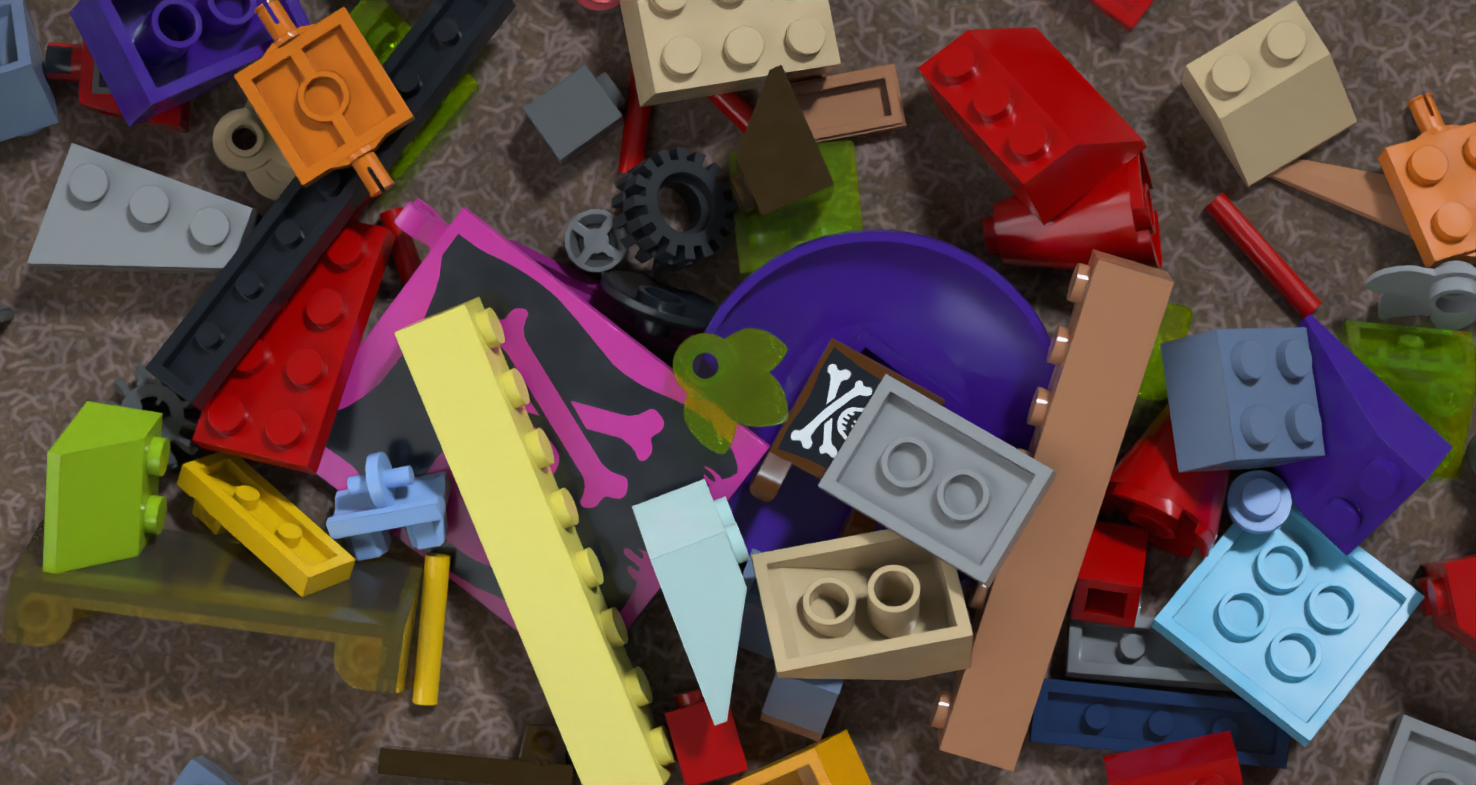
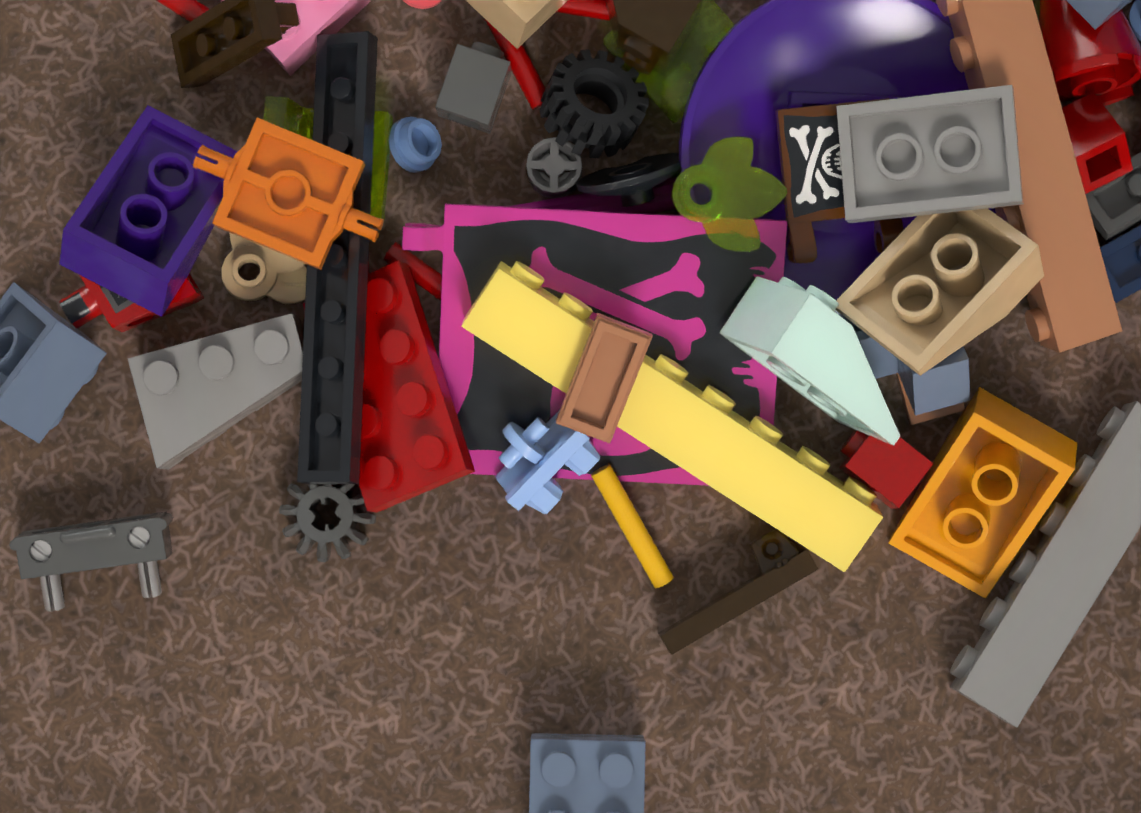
camera: 35 degrees left, 0 degrees up
(104, 487) = (329, 587): lime slope -> none
(227, 586) = (459, 598): clear yellow windscreen -> none
(240, 501) = (433, 530): yellow hinge -> none
(483, 127) = (414, 143): none -> medium blue plate
(491, 473) = (604, 378): none -> nougat tile

